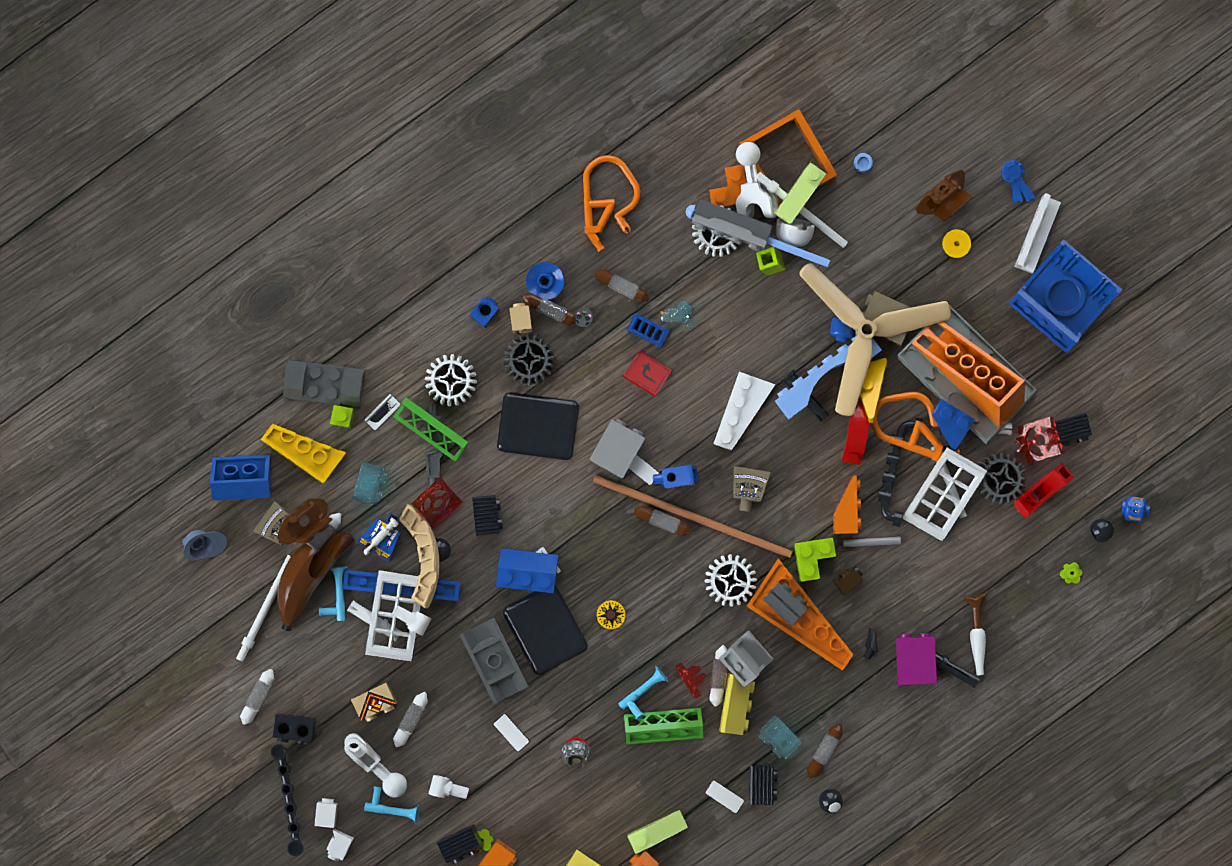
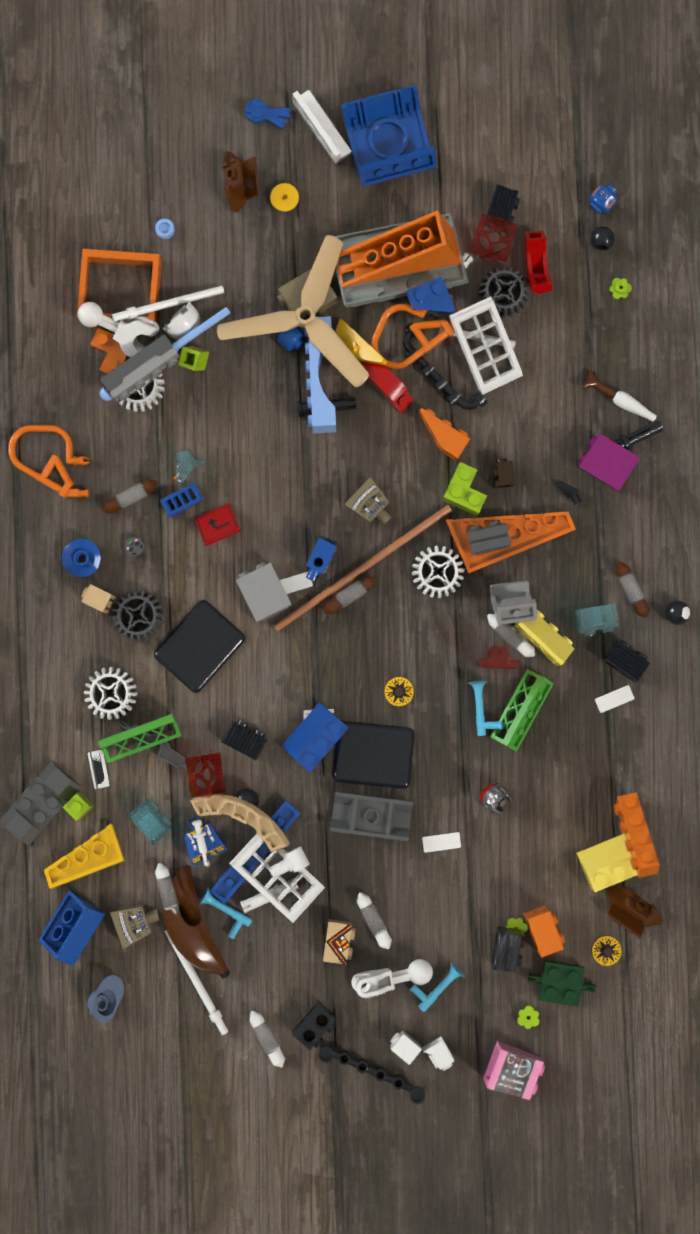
camera: 55 degrees left, 0 degrees up
(292, 531) = (144, 883): reddish brown piece -> none
(443, 787) = (449, 931): white pin -> none
(485, 320) = (78, 632): blue brick -> none
(549, 309) = (107, 569): piece -> none
(657, 831) = (606, 776): yellowish green slope -> none
(742, 406) = (298, 462): white wing -> none
(800, 193) = (152, 292): yellowish green slope -> none
(871, 541) = (484, 433): light grey bar -> none

